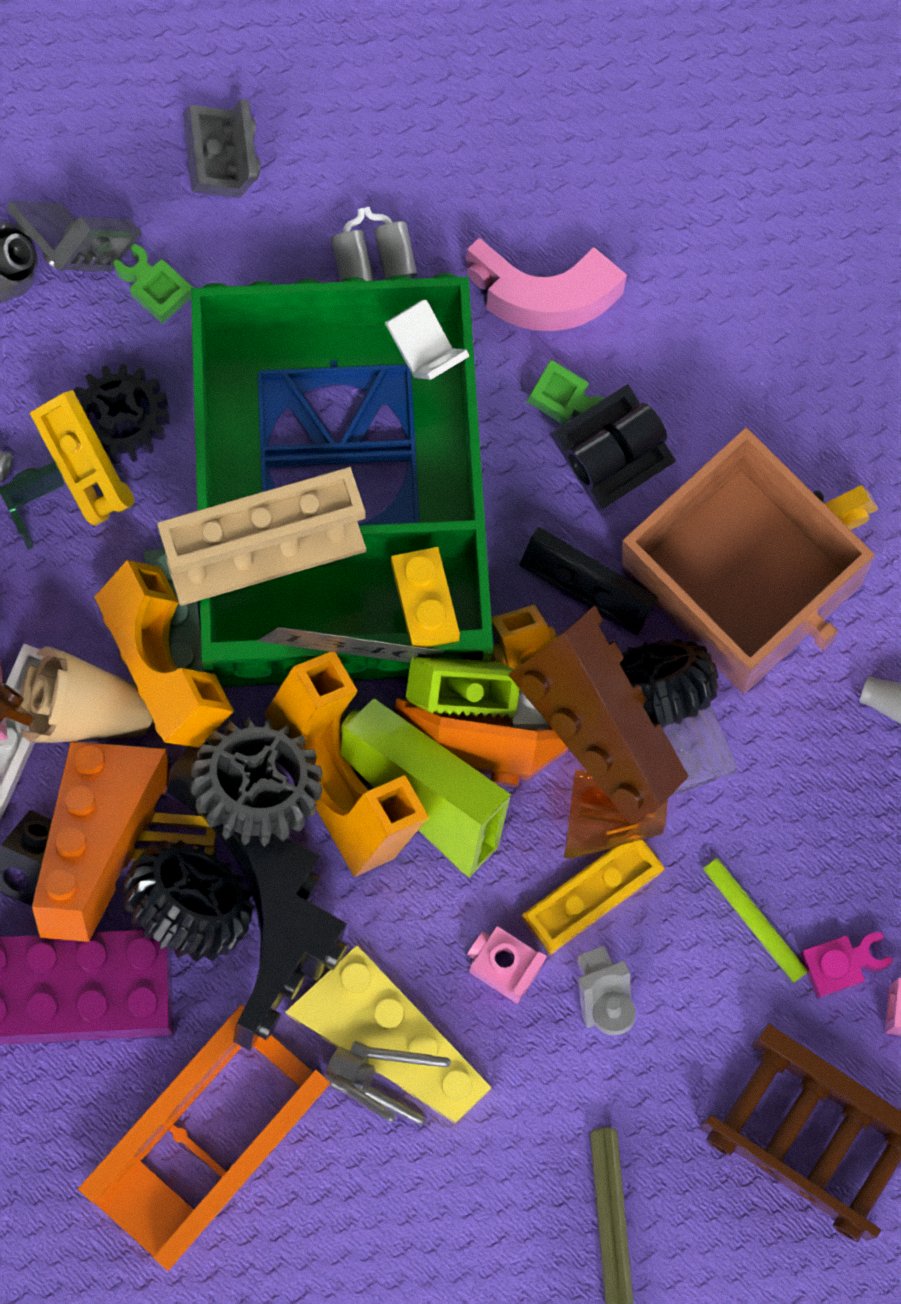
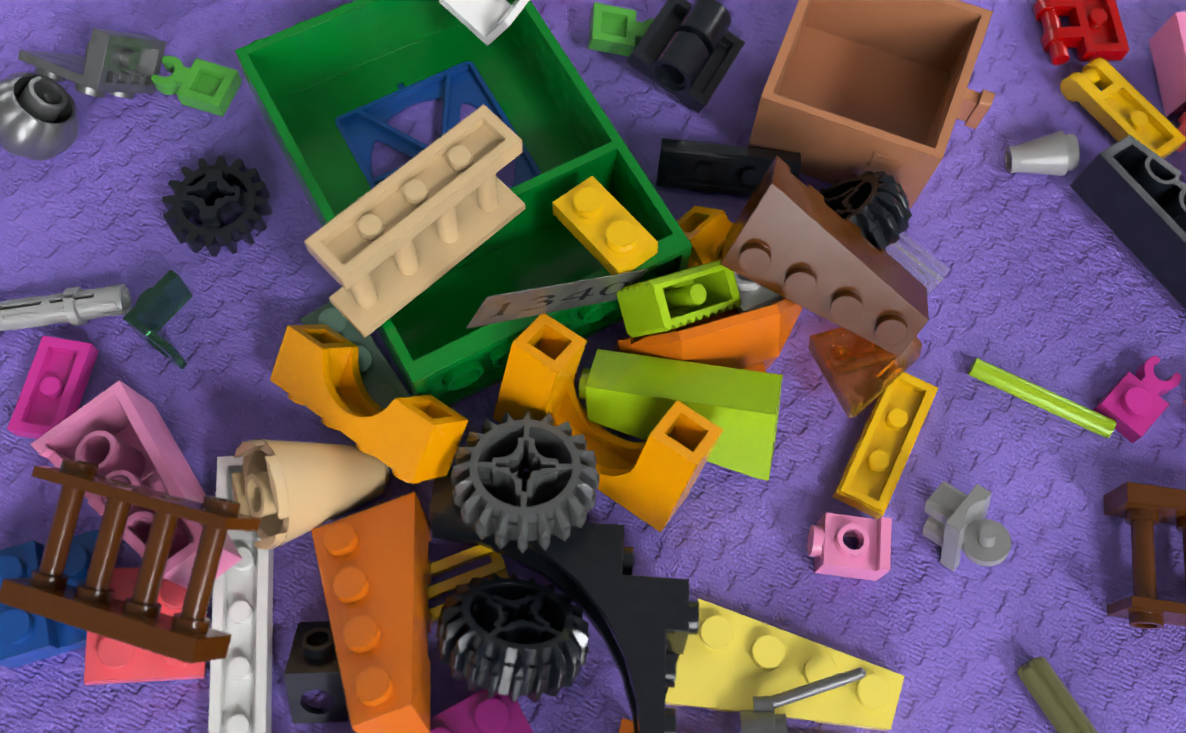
camera: 25 degrees left, 5 degrees down
(81, 458) = (195, 254): yellow plate -> none

